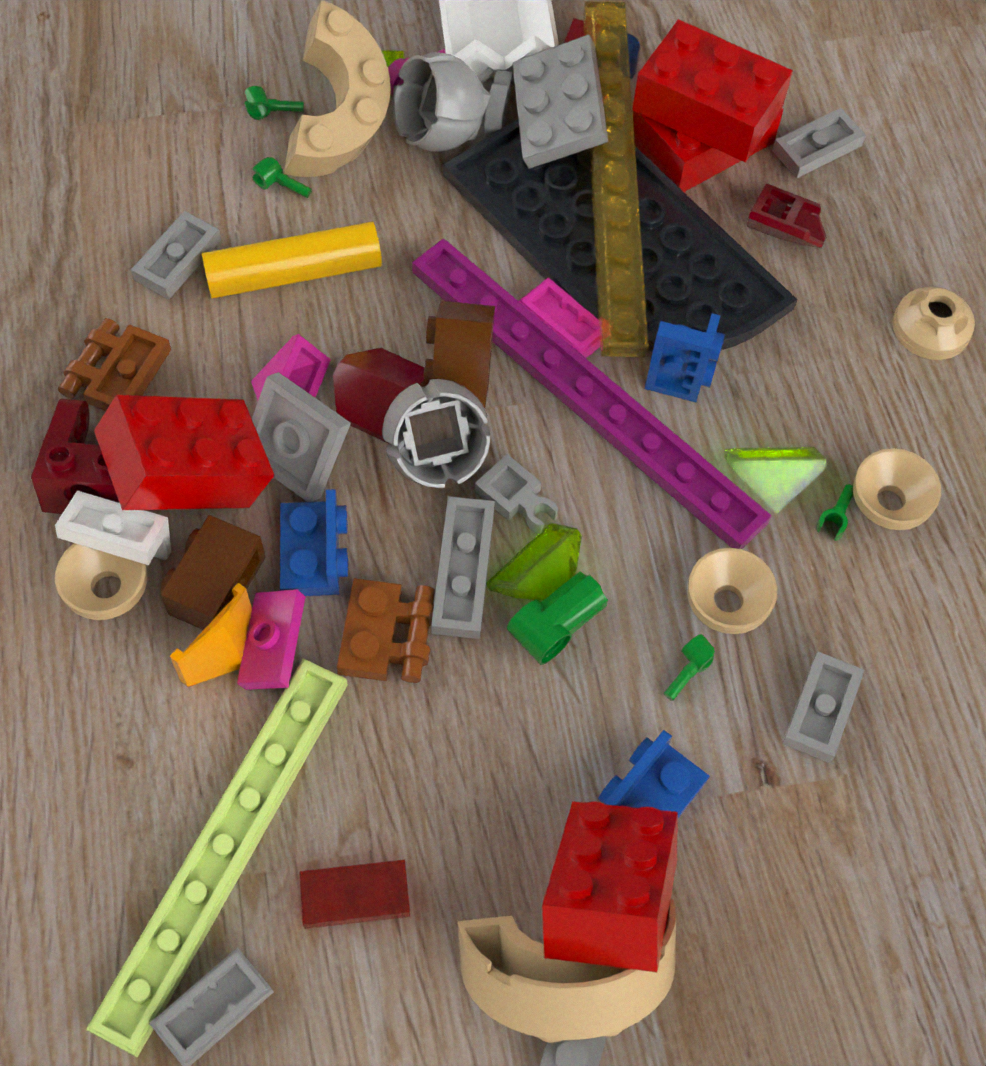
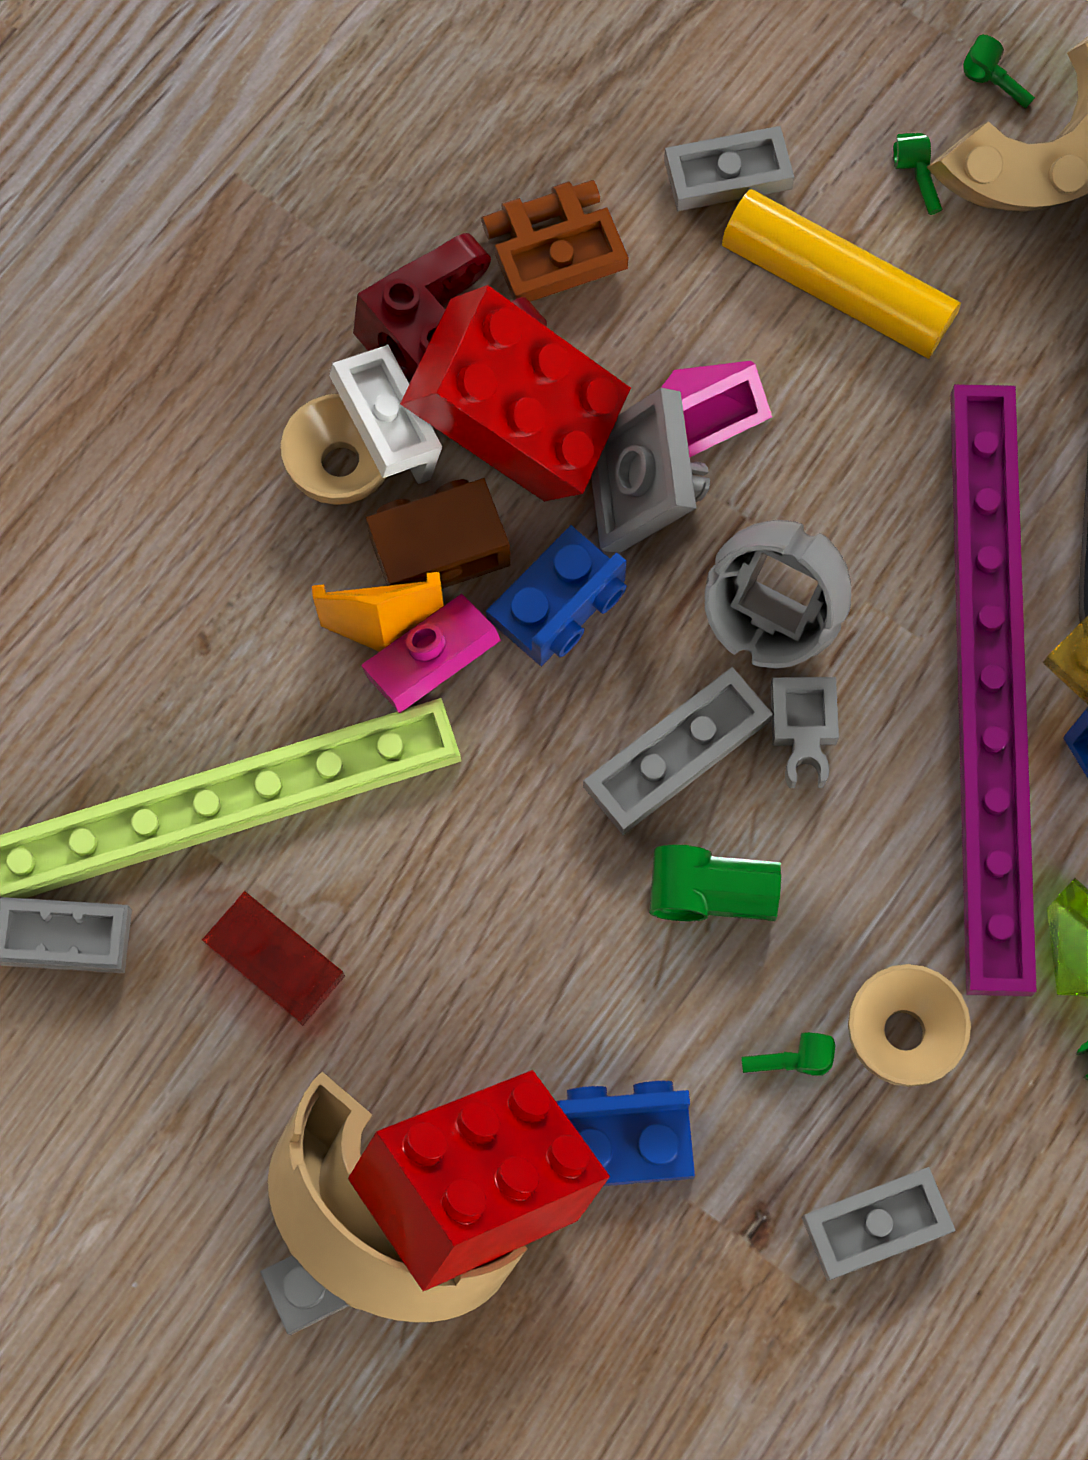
camera: 50 degrees right, 10 degrees up
(368, 385) = (787, 479): dark red slope -> none
(371, 627) = (532, 729): dark orange plate -> none
(461, 346) = (893, 529): reddish brown brick -> none
(541, 565) = (752, 820): clear neon green slope -> none
(564, 316) = (1051, 583): dark pink plate -> none

